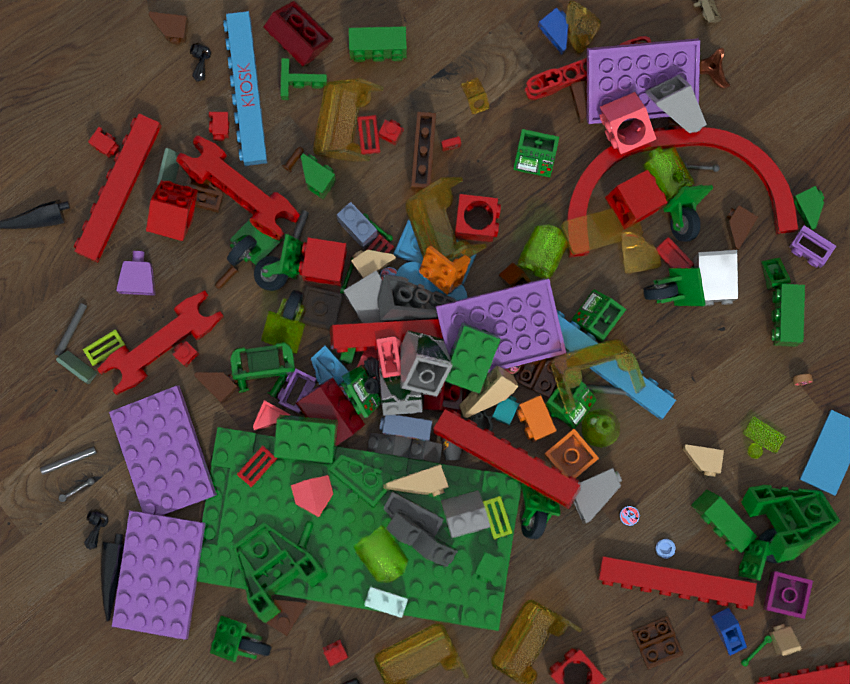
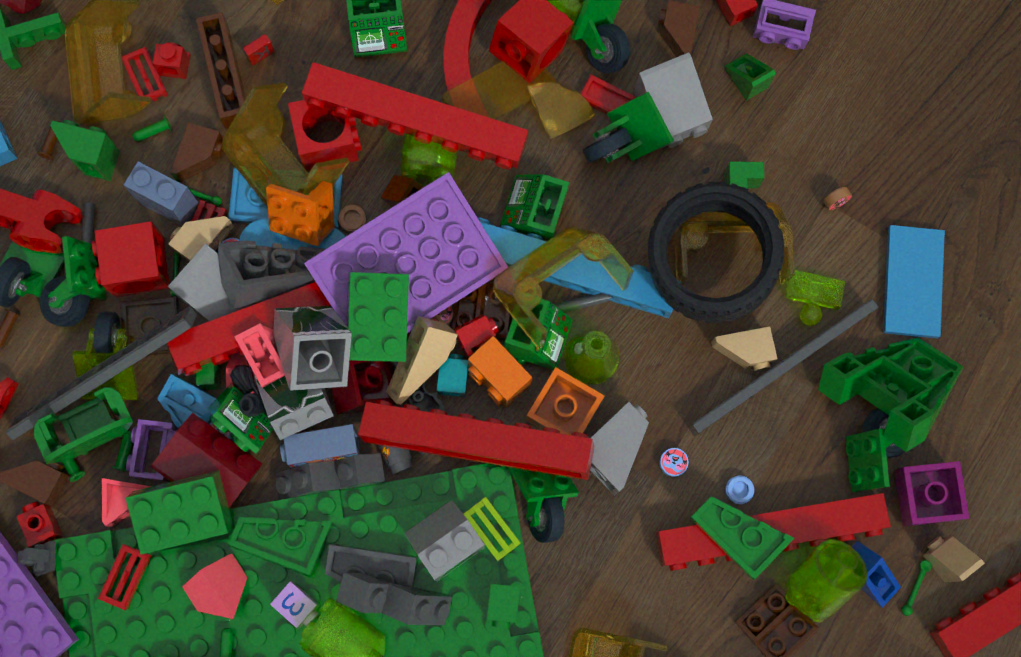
camera: 20 degrees left, 5 degrees down
(207, 435) = (40, 557): none -> dark grey brick
(213, 420) = (47, 529): none -> red brick
(284, 332) = (103, 371): none -> dark grey tile
(359, 522) = (296, 605): none -> lavender brick
(362, 174) = (152, 129): none -> green piece
(388, 201) = (196, 152): none -> reddish brown slope
(423, 482) = (366, 517): tan slope -> none
(475, 281) = (352, 218): none -> medium nougat tile
(530, 388) = (475, 333): none -> red brick
(539, 232) = (415, 116): none -> red brick
(653, 577) = (741, 537): none -> green wing
(689, 356) = (723, 199): none -> black tyre
(697, 624) = (826, 580): none -> clear neon green cylinder
(703, 361) = (695, 234): none -> clear yellow windscreen
(723, 479) = (783, 367): none -> dark grey tile
(723, 520) = (805, 422): green wedge -> none
(740, 343) = (744, 174): none -> green piece
(788, 315) = (788, 118): green brick -> none

